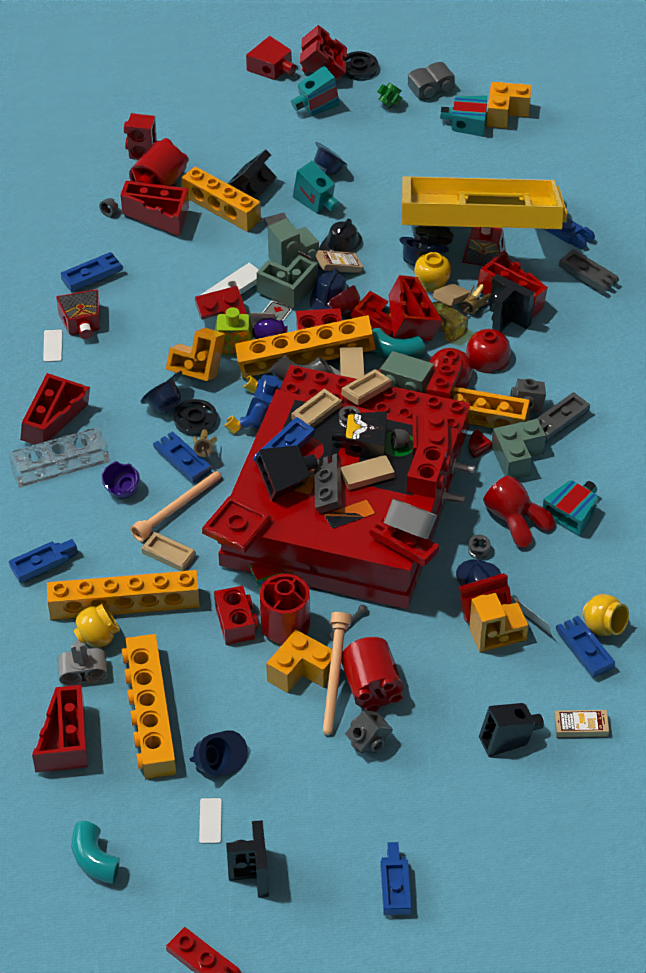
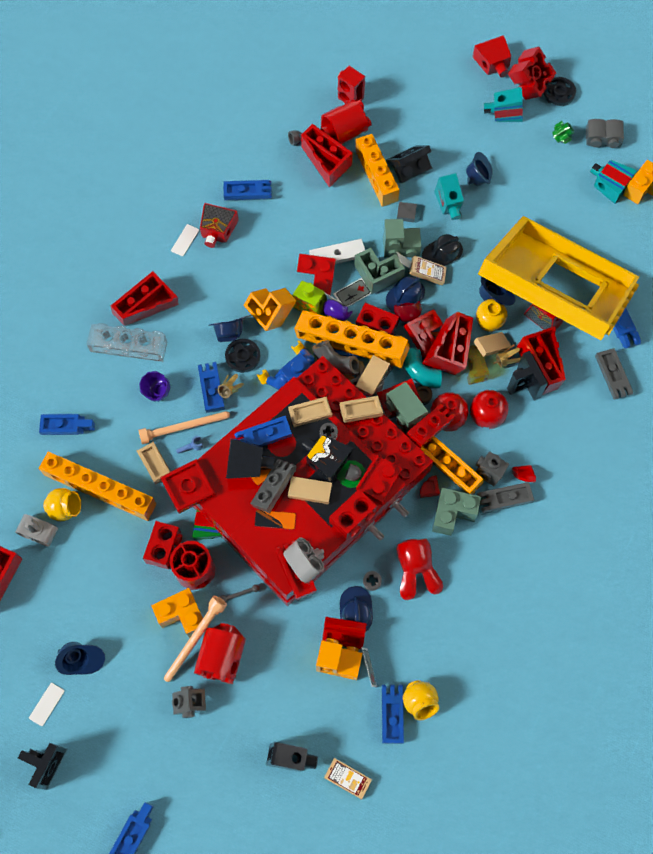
camera: 30 degrees right, 20 degrees up
(146, 669) = (53, 619): light orange brick -> none
(201, 516) = (191, 445): none -> medium blue hand
(563, 388) = (524, 473): none -> red tile
(572, 505) = (463, 584): teal torso -> none

